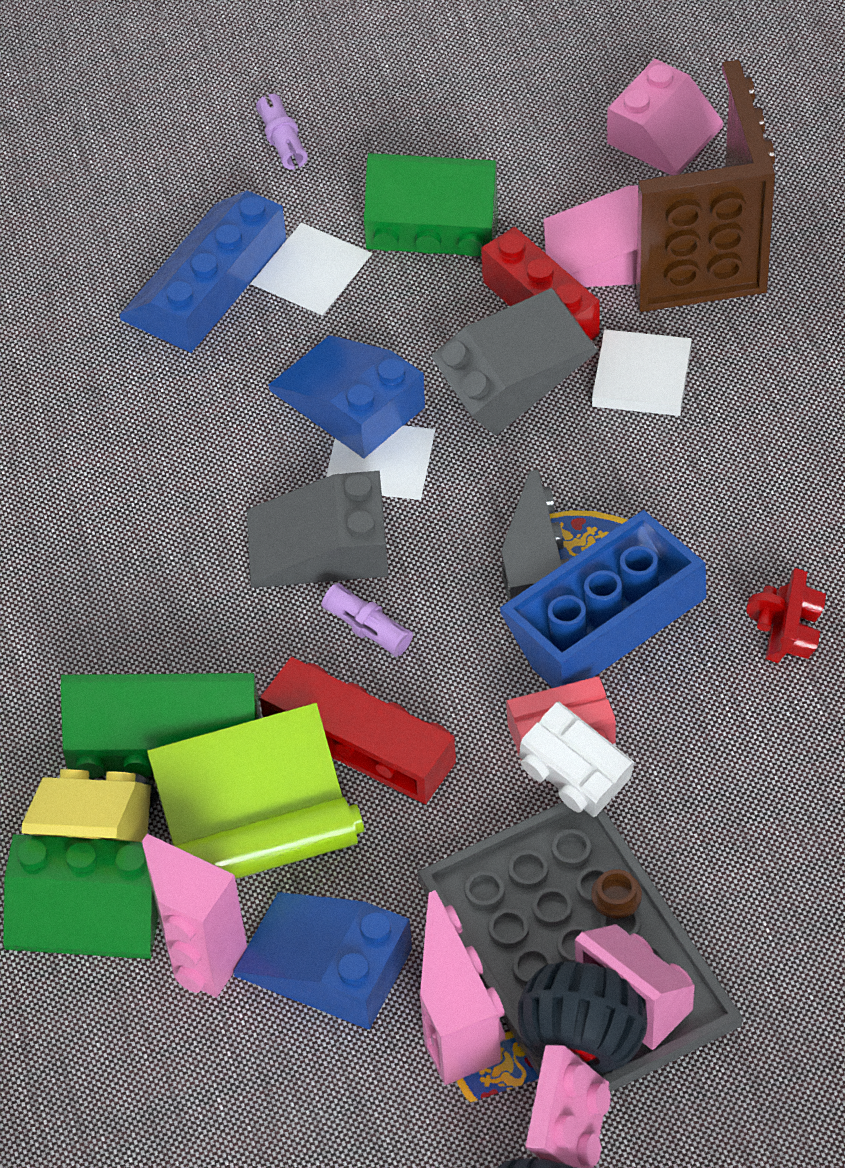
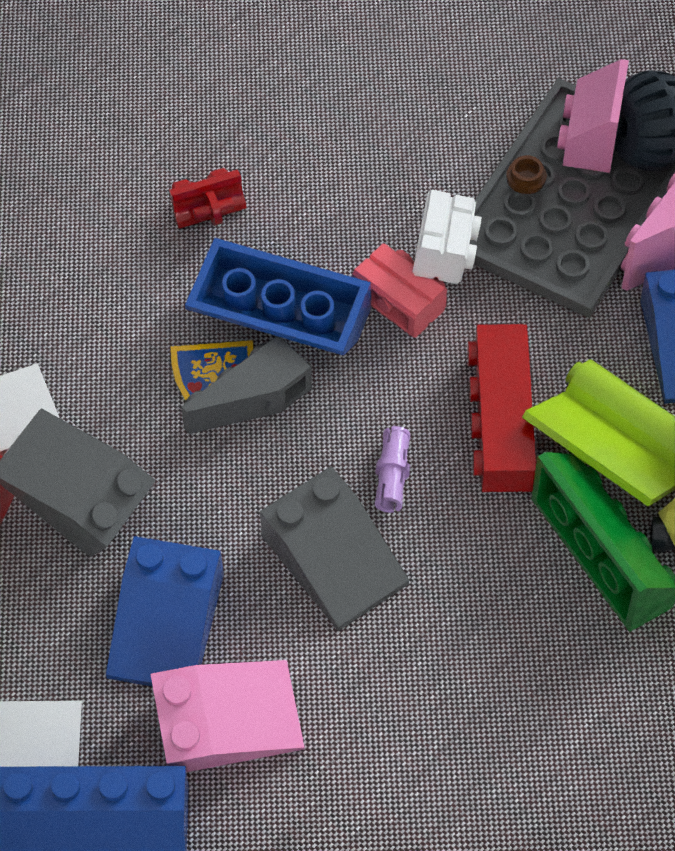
camera: 125 degrees left, 5 degrees up
(222, 380) = (226, 713): none -> bright pink slope
(400, 459) = (242, 565): white sticker -> none

